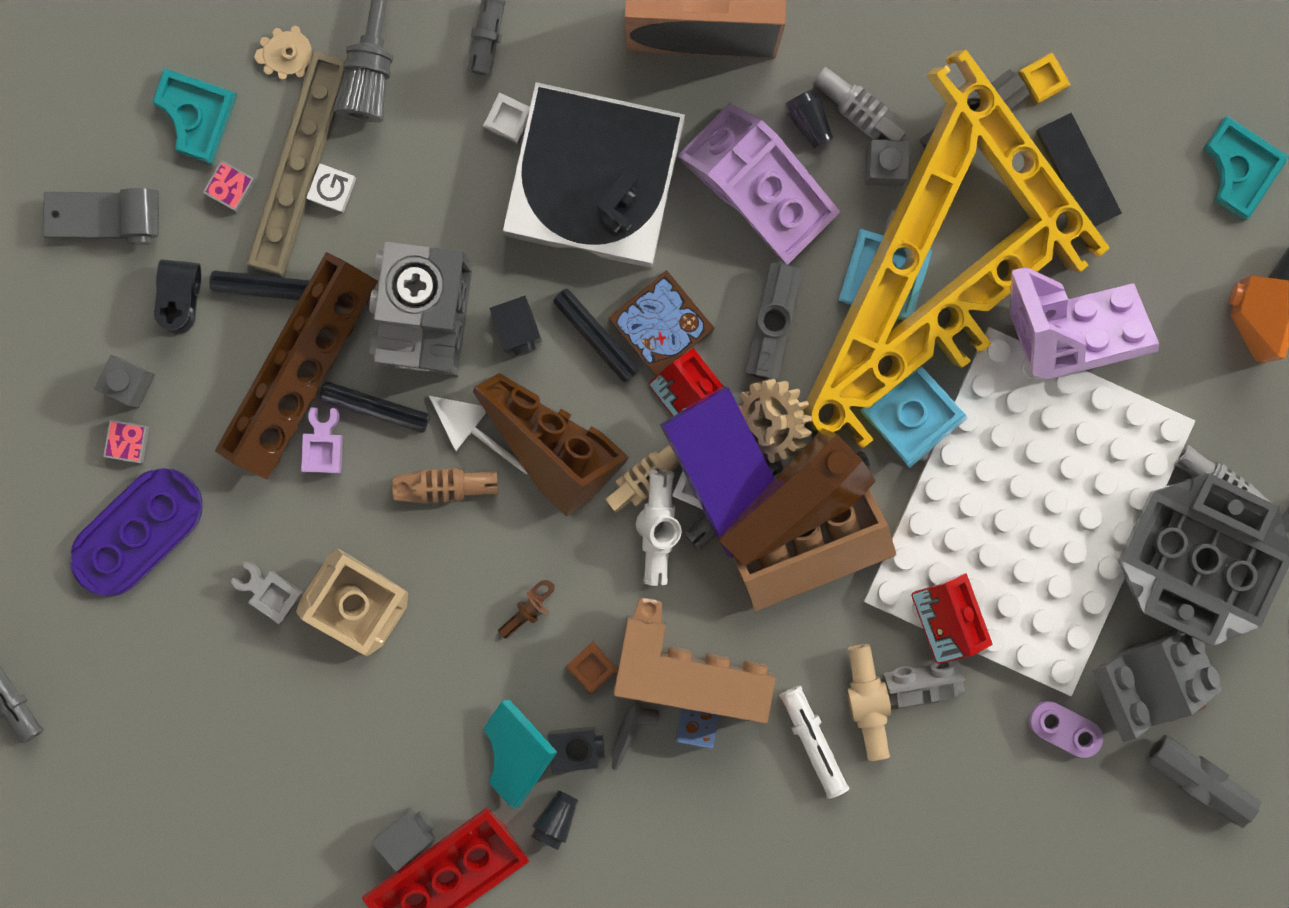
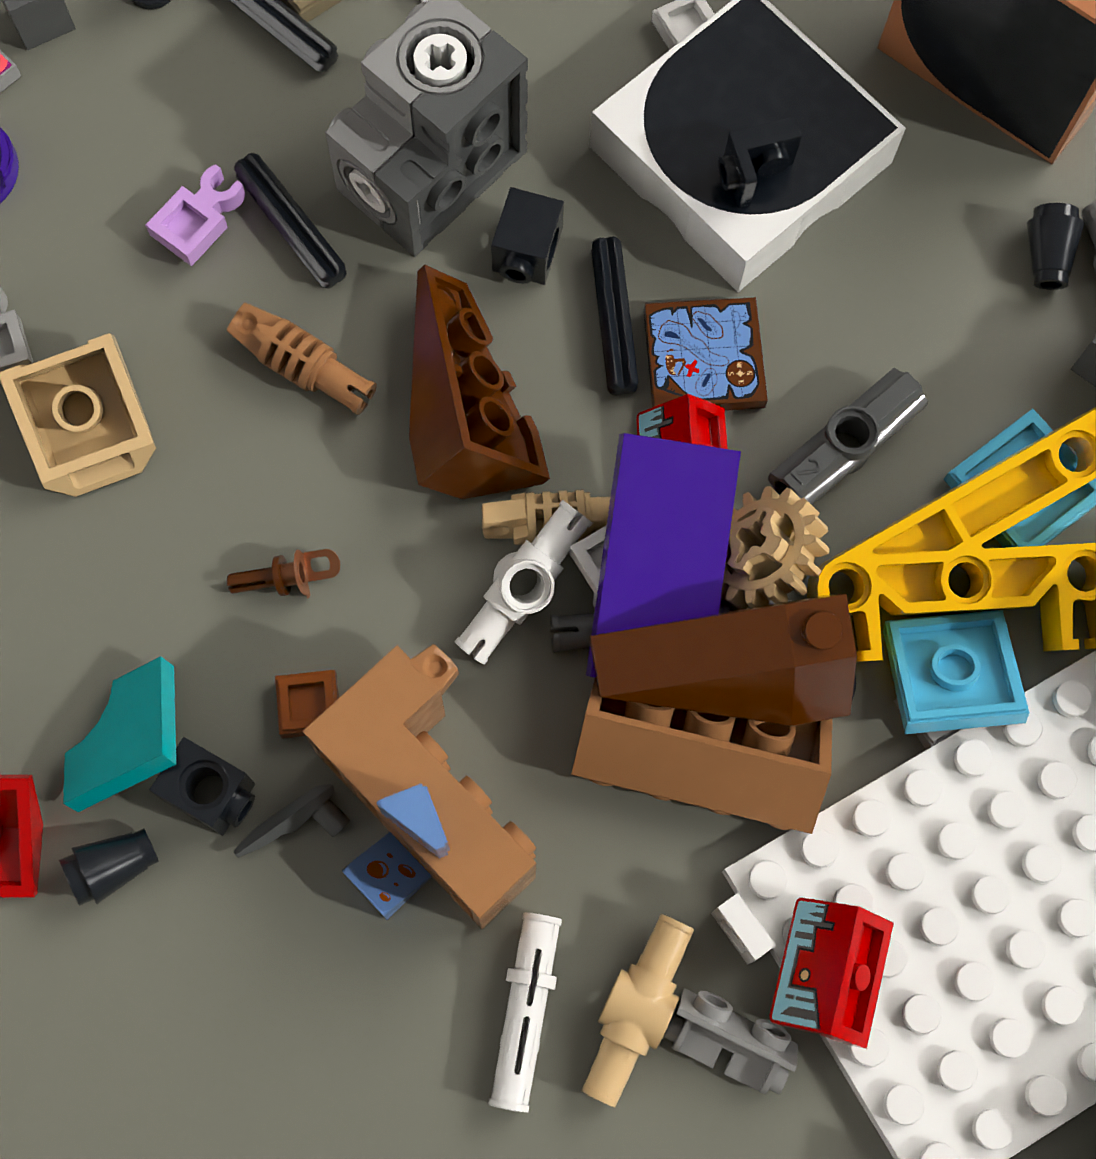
camera: 30 degrees right, 15 degrees down
(279, 373) = (205, 99): reddish brown brick -> none
(461, 420) = (379, 304): white piece -> none
(705, 700) = (416, 815): none -> medium blue slope
(760, 179) = (953, 273): lavender bracket -> none
(893, 626) = (743, 929): none -> white tile

